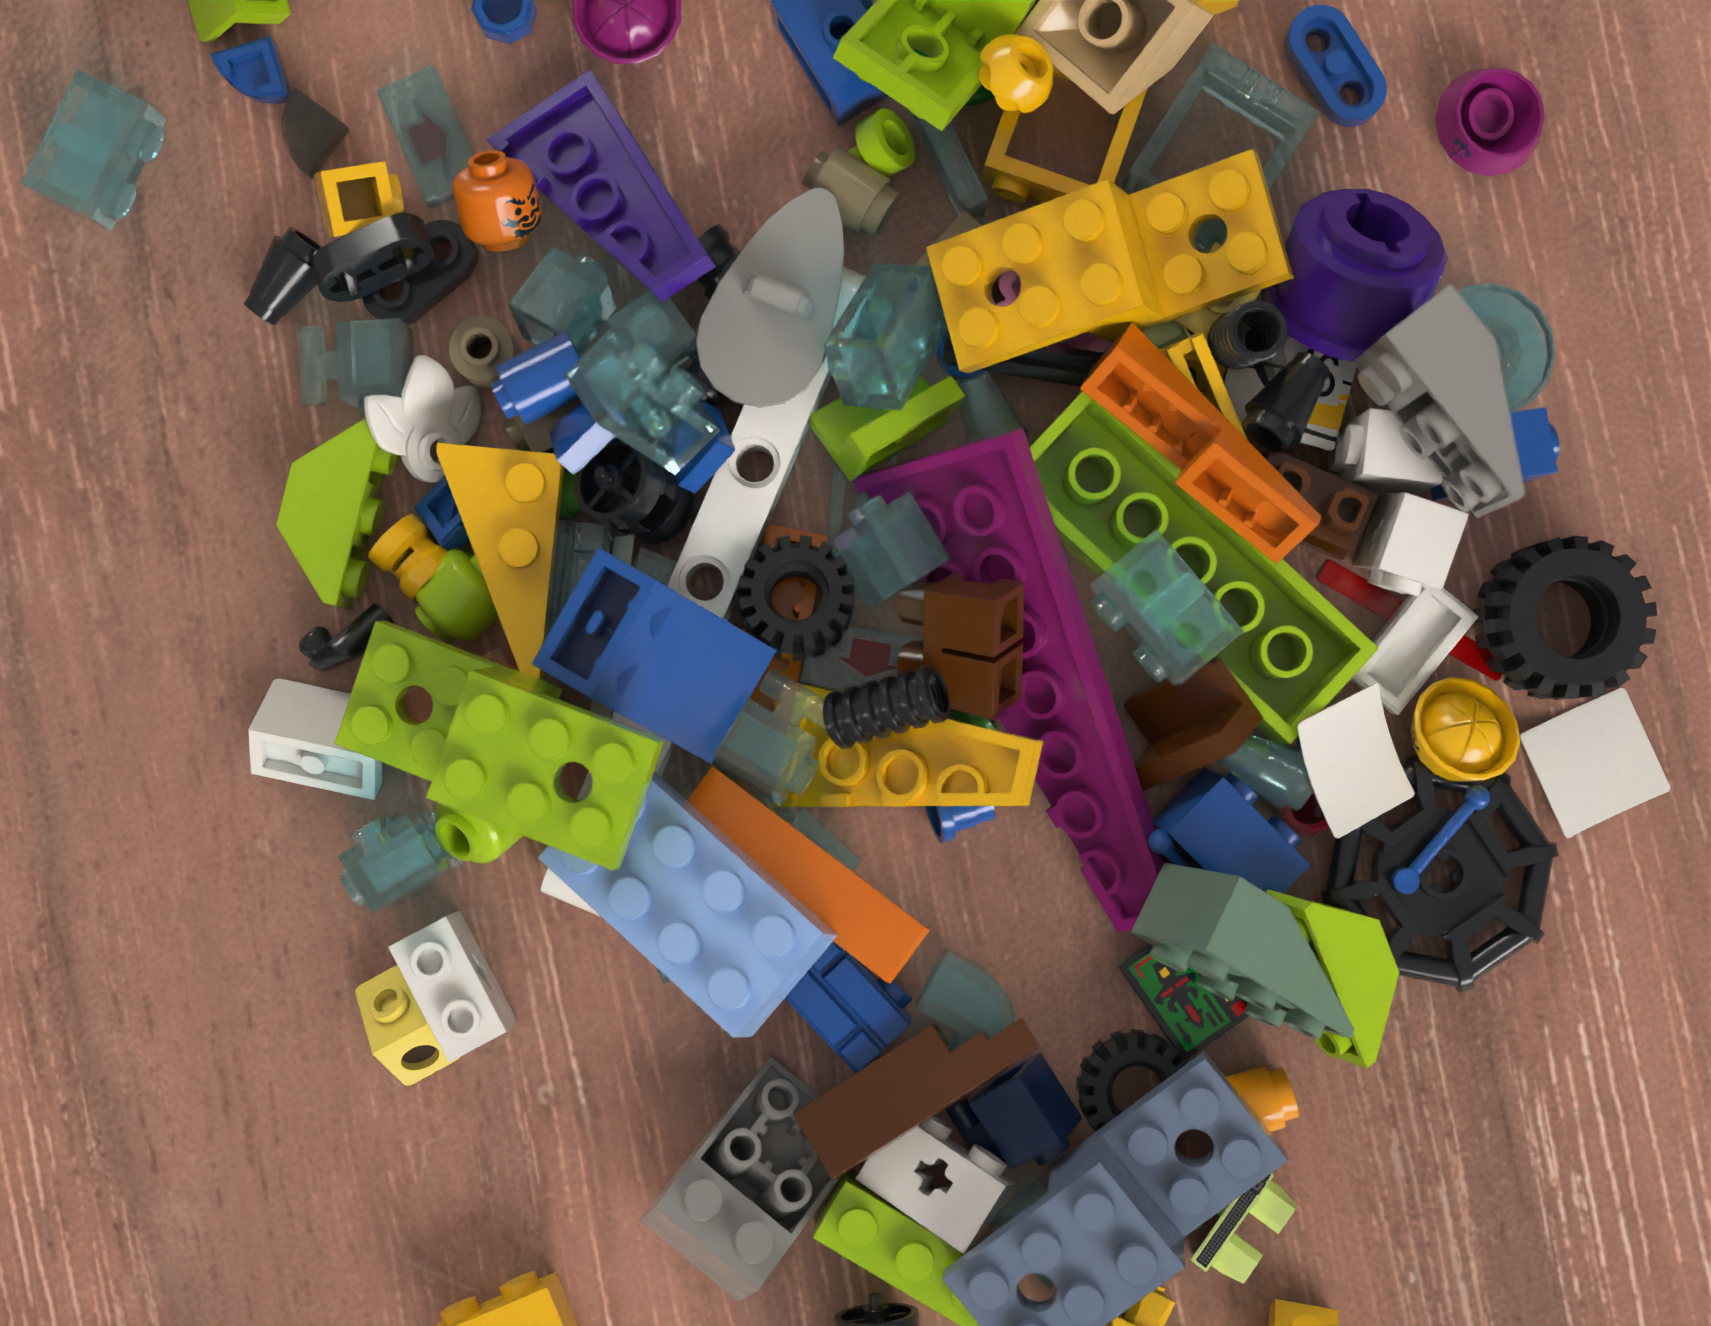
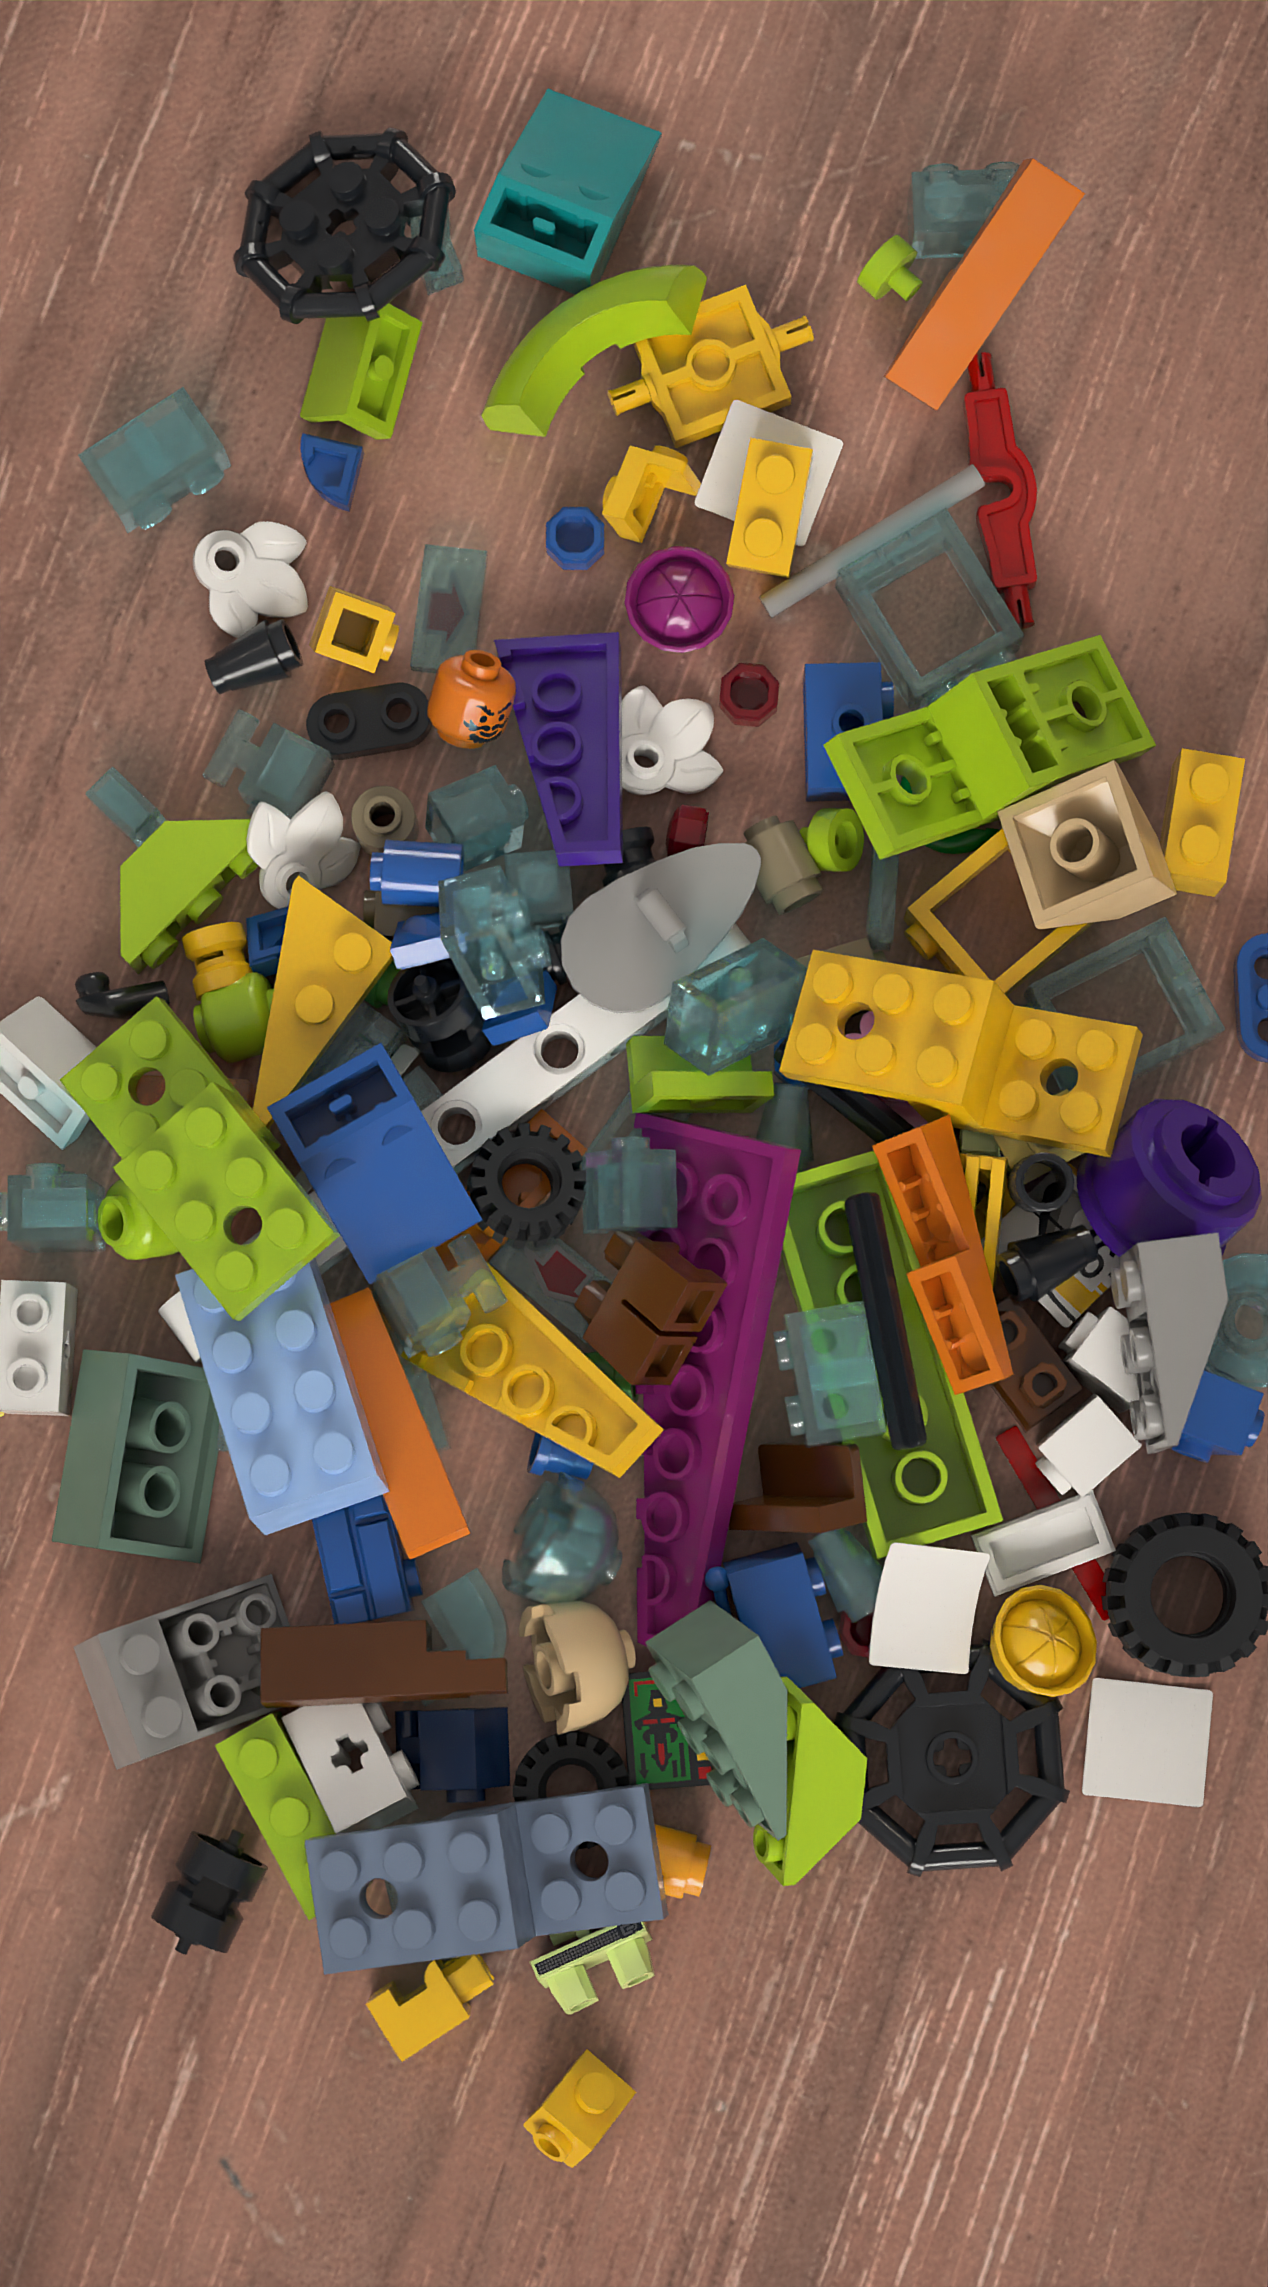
camera: 30 degrees right, 5 degrees down
(250, 204) = (262, 575): none -> white plate
(250, 470) = (125, 807): none -> clear light blue piece
(310, 132) = (347, 547): clear smoke tile -> none
(372, 257) = (336, 687): black beam -> none
(599, 1029) = (139, 1458): none -> sand green slope
(691, 139) = (671, 739): none -> white plate
(735, 59) = (749, 694): none -> dark red tile
(751, 208) = (686, 829): none -> dark red tile
(886, 707) = (546, 1322): black piece -> none
(1010, 887) = (565, 1544): none -> clear light blue cylinder
(1016, 72) = (975, 846): yellow plate -> none
(1080, 982) = (577, 1662): none -> tan cylinder
(1163, 513) = (885, 1321): none -> black axle
(1407, 879) = (916, 1742): blue hinge -> none

